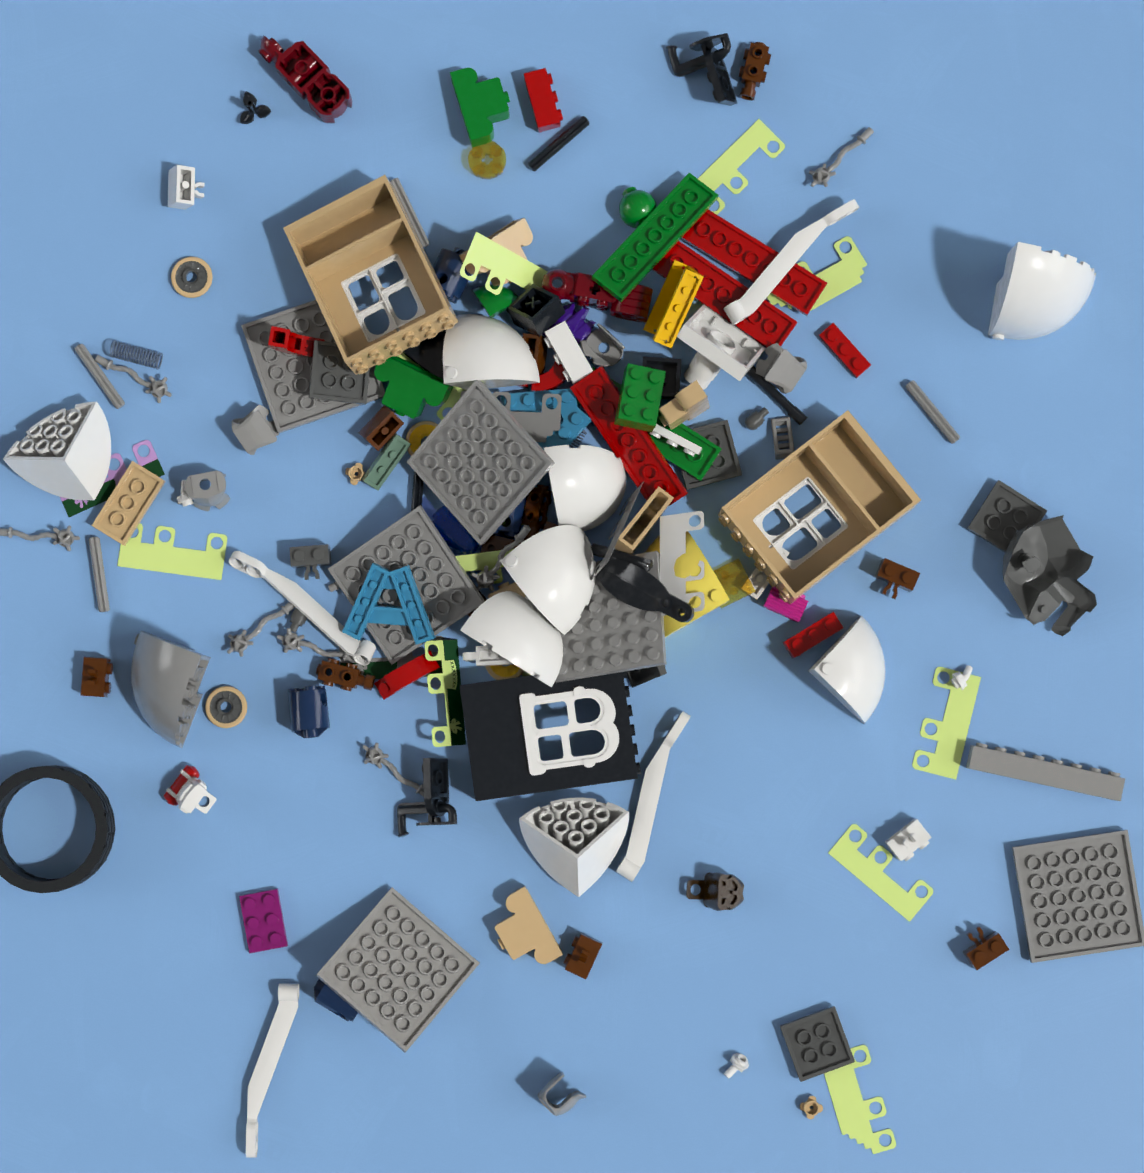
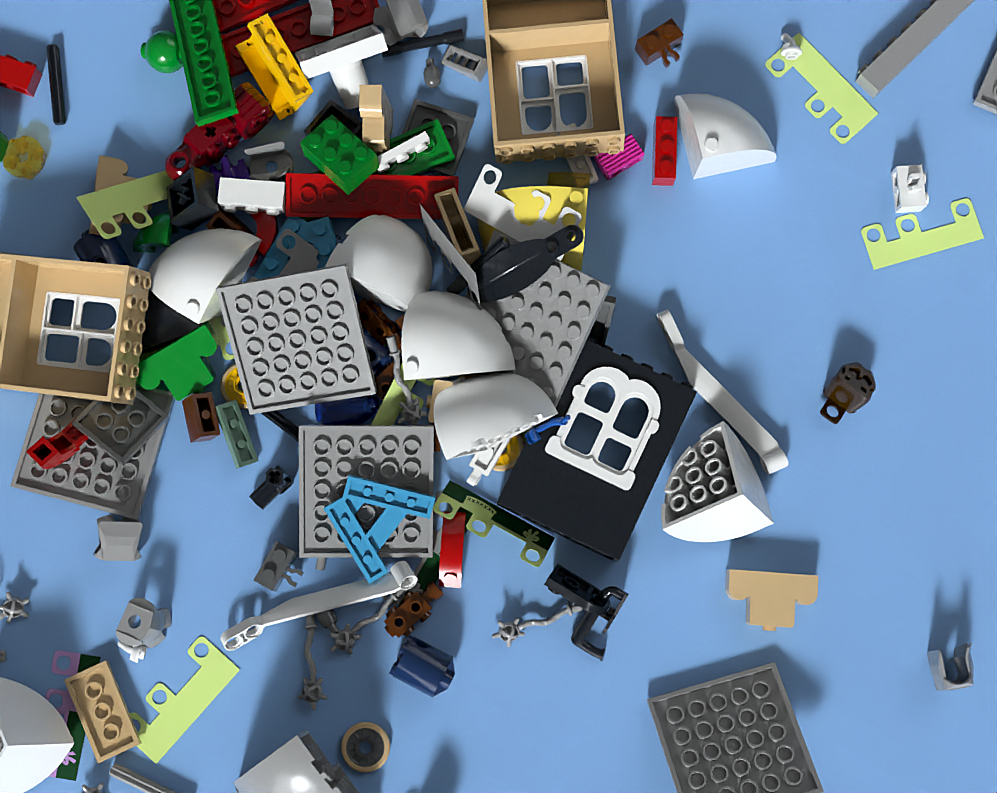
camera: 60 degrees left, 5 degrees down
(351, 473) = (223, 475): tan plate -> none
(368, 514) = (275, 483): none -> black piece
(525, 679) = (533, 435): none -> blue piece
(582, 956) = (829, 558): reddish brown brick -> none

